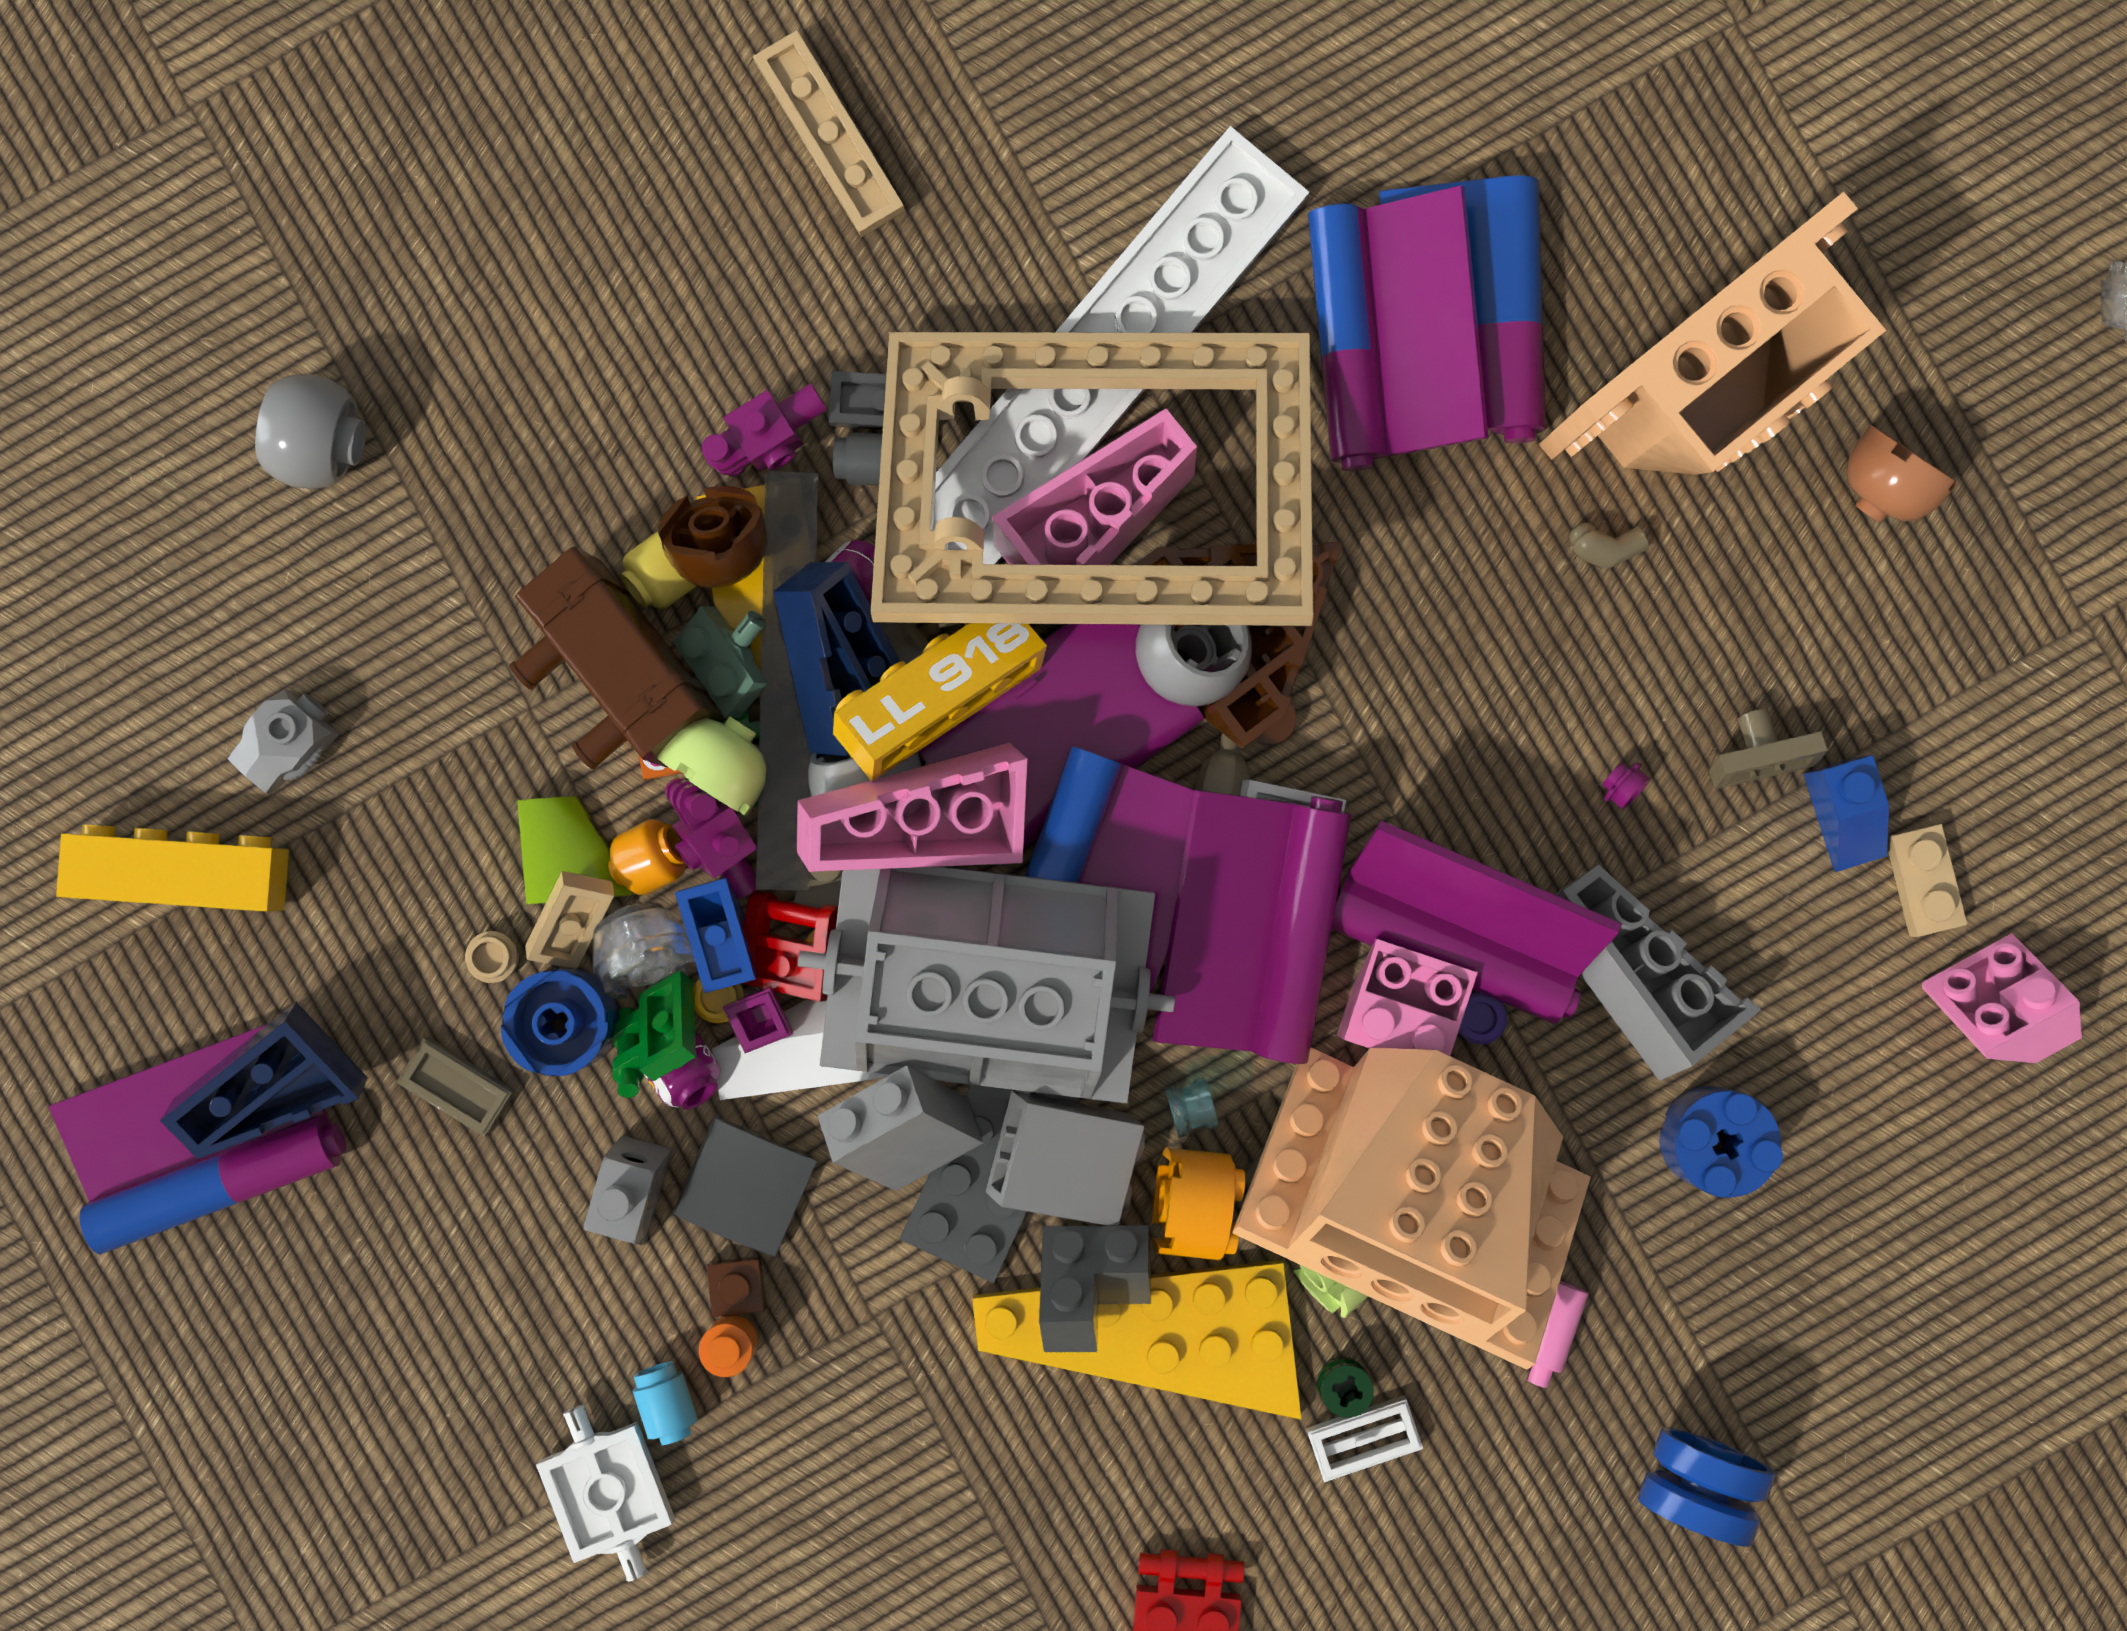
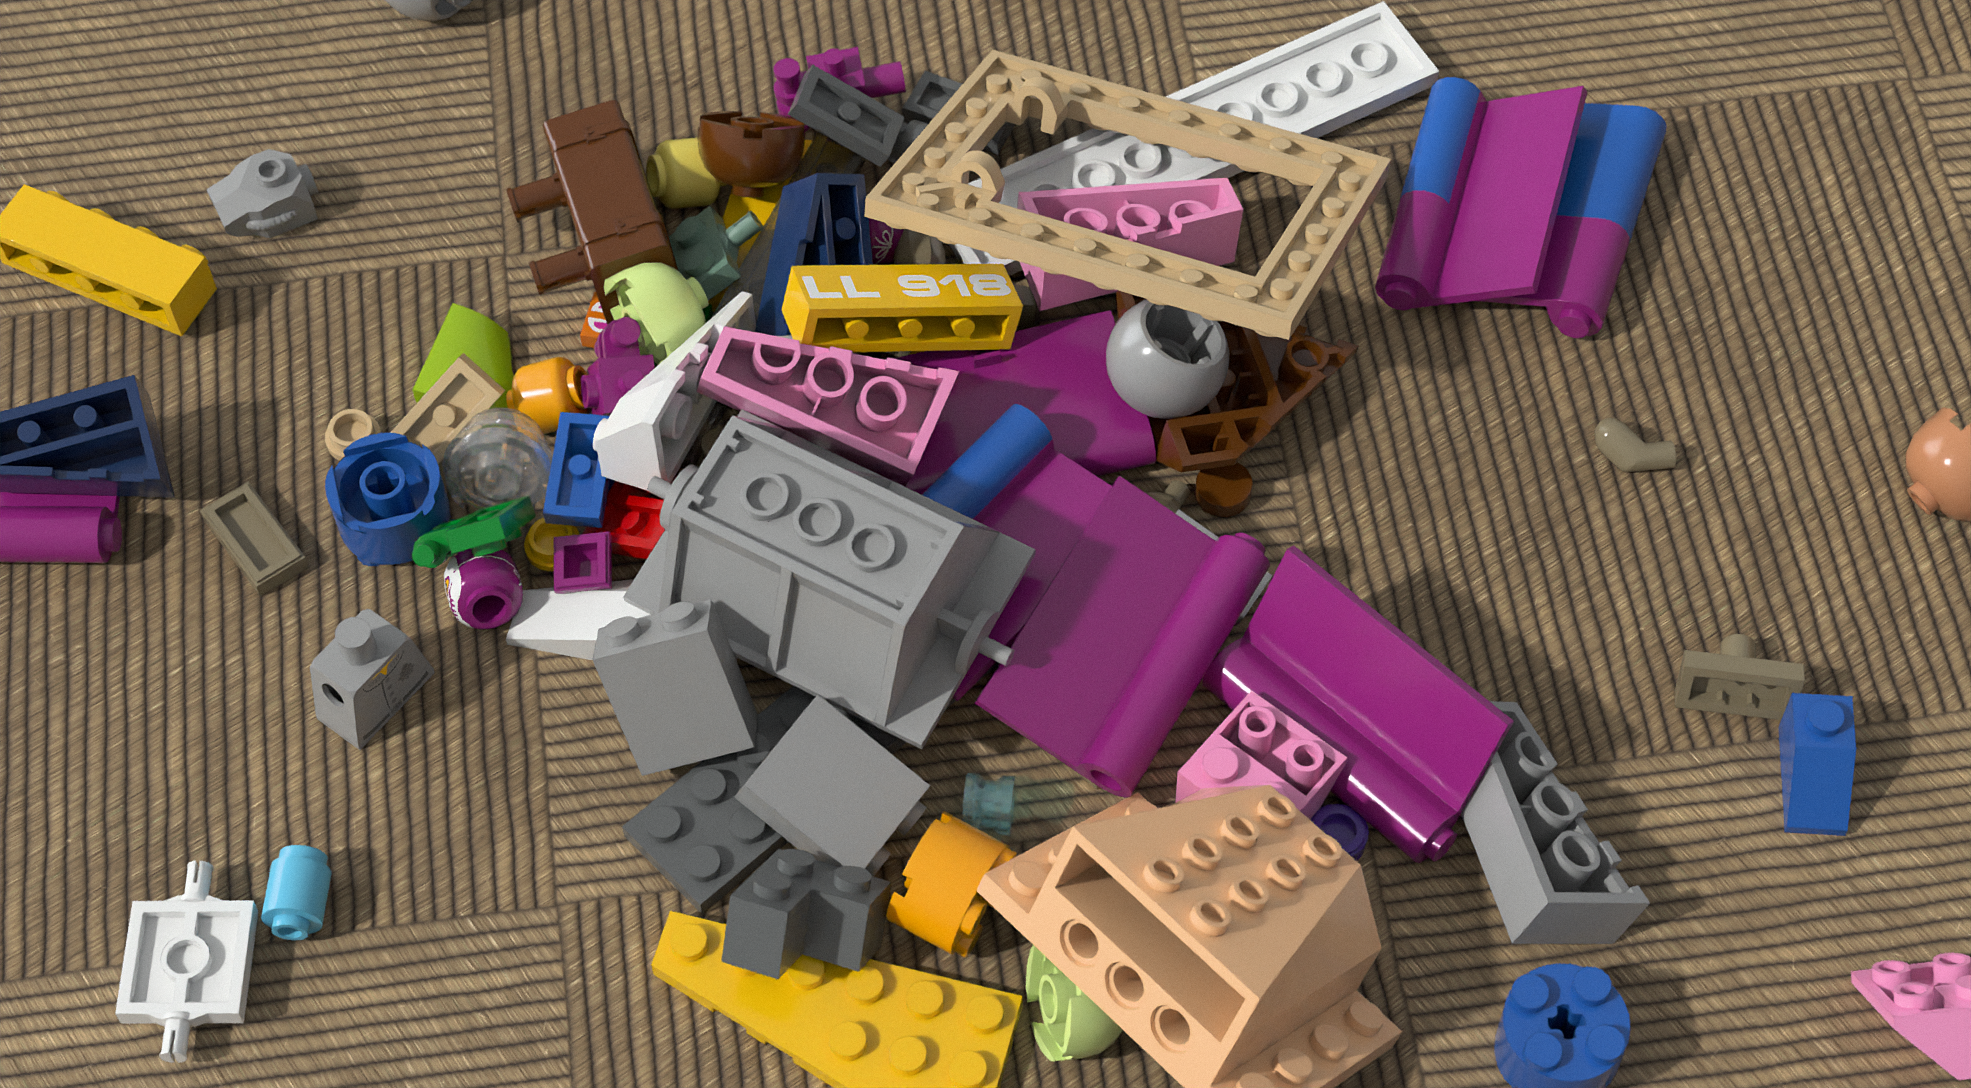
camera: 20 degrees right, 30 degrees down
(728, 1346) = (393, 853): orange brick -> none
(736, 1286) = (430, 817): reddish brown plate -> none
(744, 1186) = (489, 721): dark grey slope -> none
(770, 874) = (663, 412): none -> white wedge
(791, 475) = (846, 115): none -> dark grey plate
(1625, 784) = (1577, 663): magenta plate -> none
(1734, 364) = (1780, 283): light nougat wedge -> none
(1926, 880) = (1885, 869): tan plate -> none

